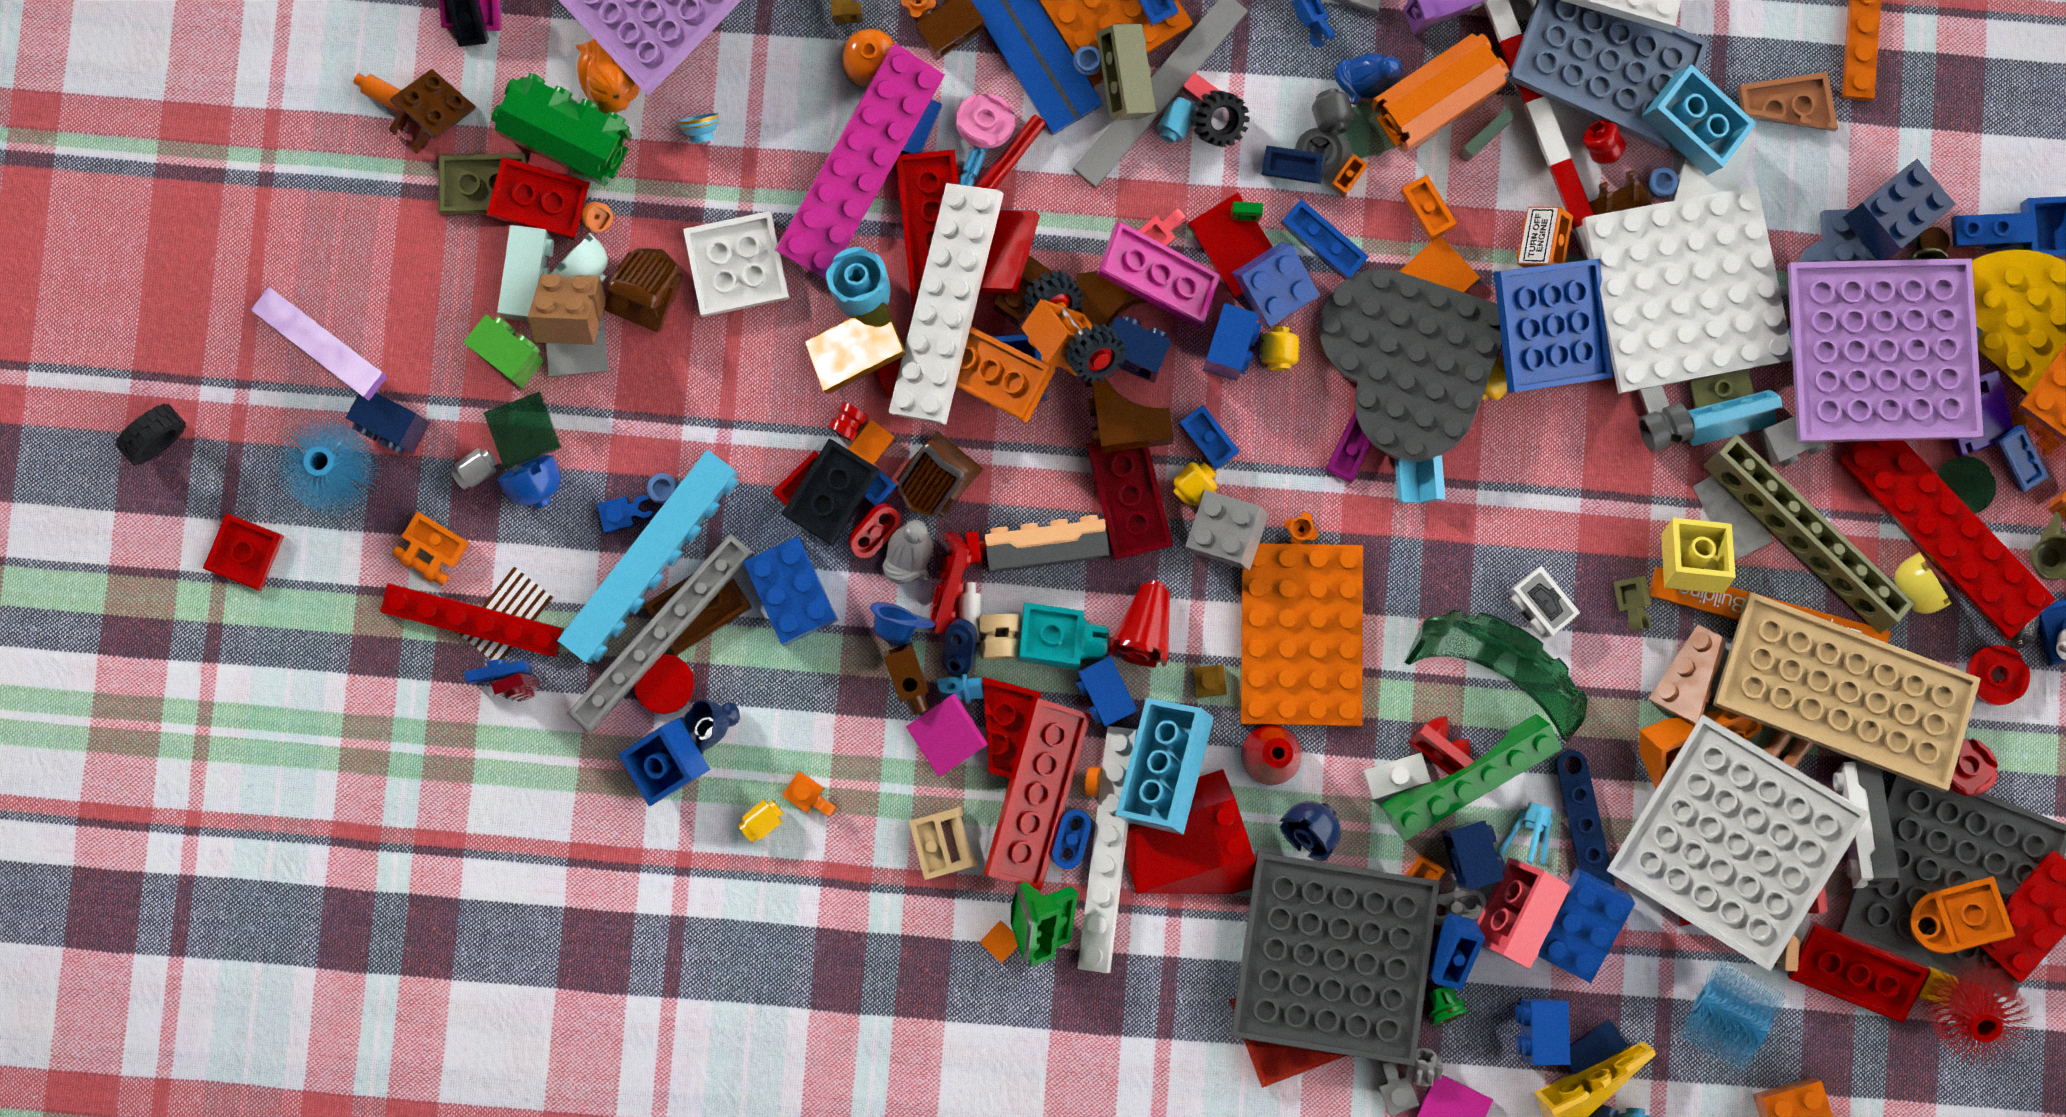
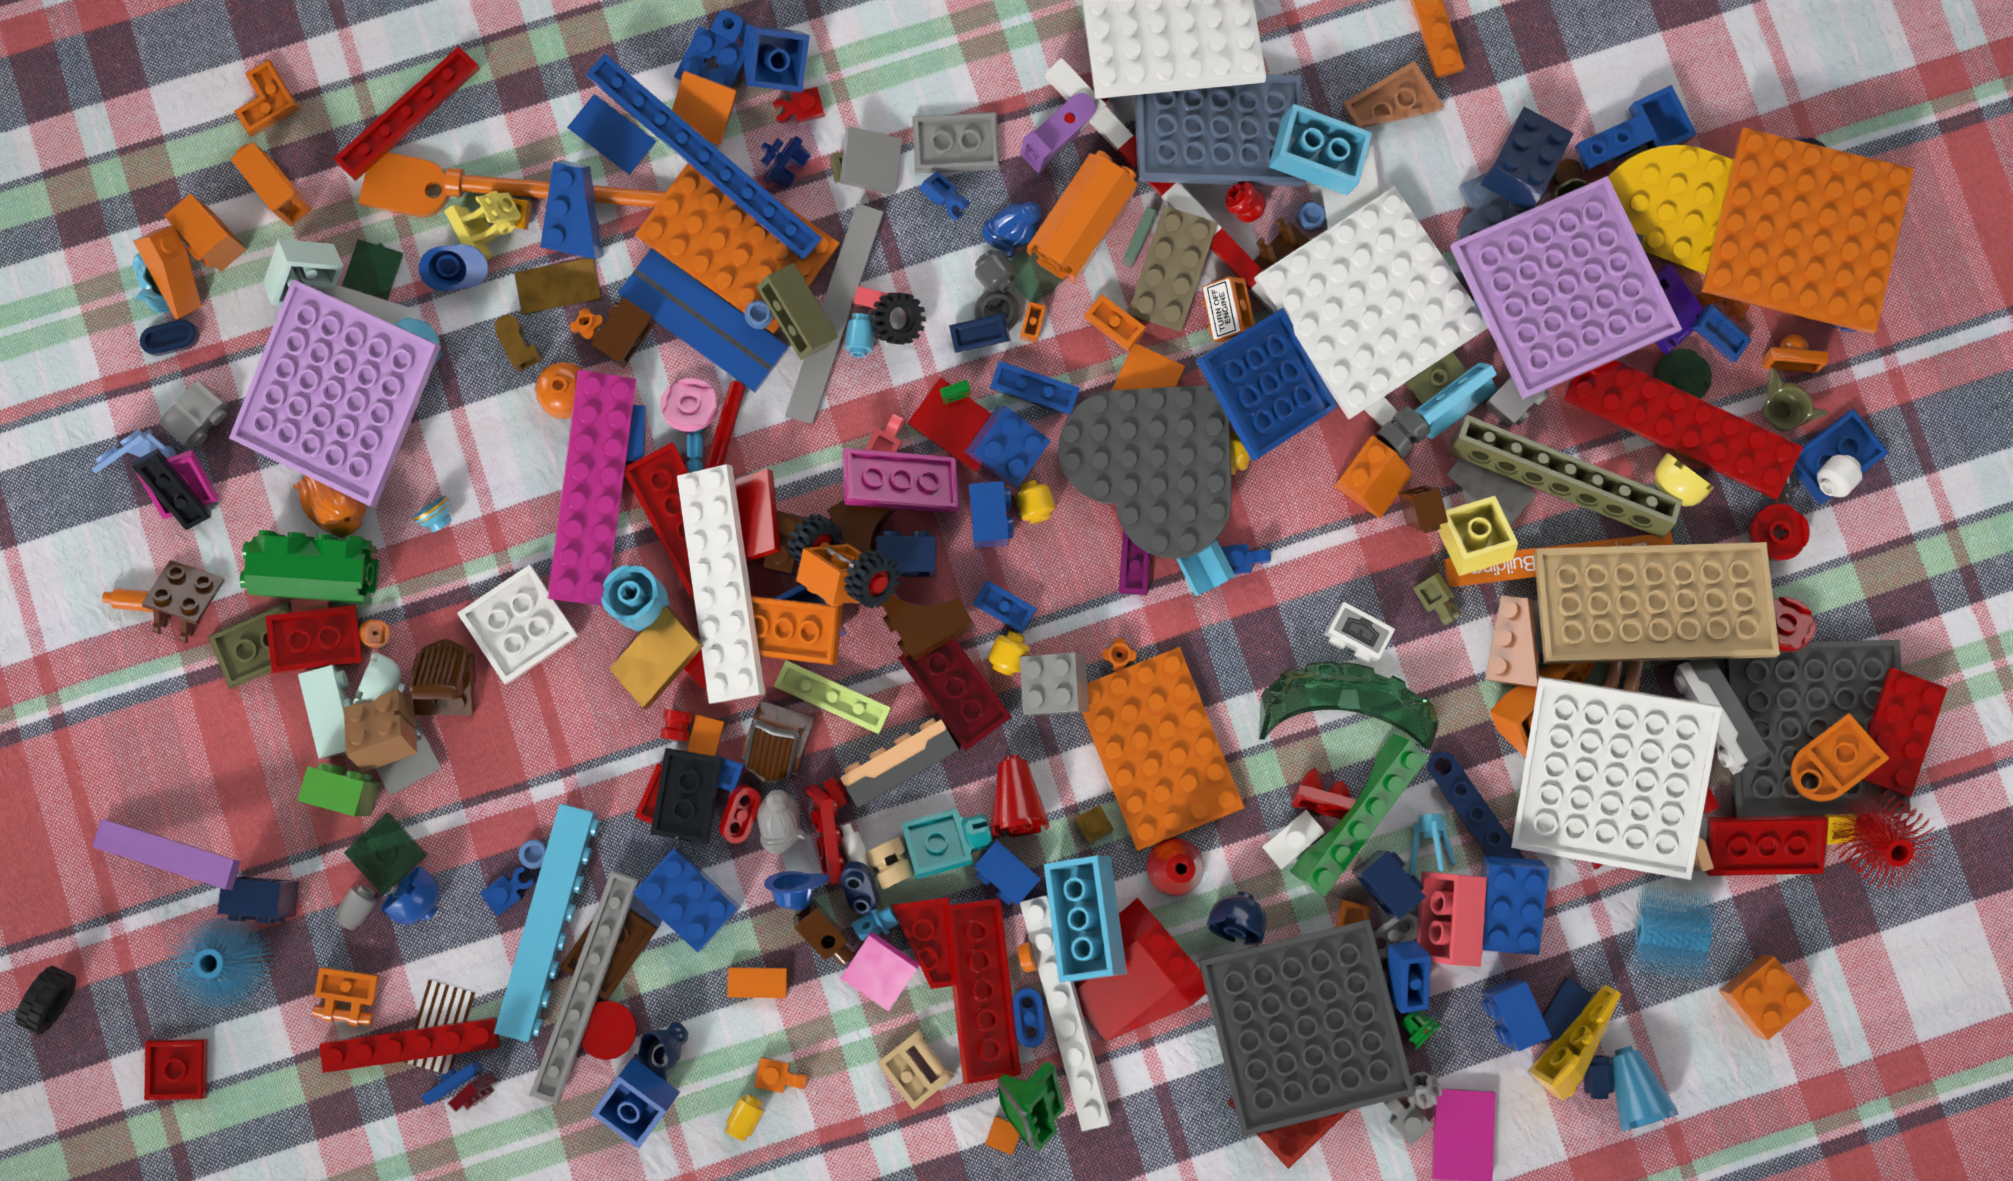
camera: 25 degrees left, 0 degrees up
(825, 698) = (757, 982): none -> orange tile
(1008, 456) = (832, 697): none -> yellowish green plate
(1458, 485) = (1241, 559): none -> blue plate
(1506, 178) = (1172, 268): none -> dark tan plate
(1621, 459) = (1374, 477): none -> orange slope
(1656, 507) = (1423, 508): none -> reddish brown brick

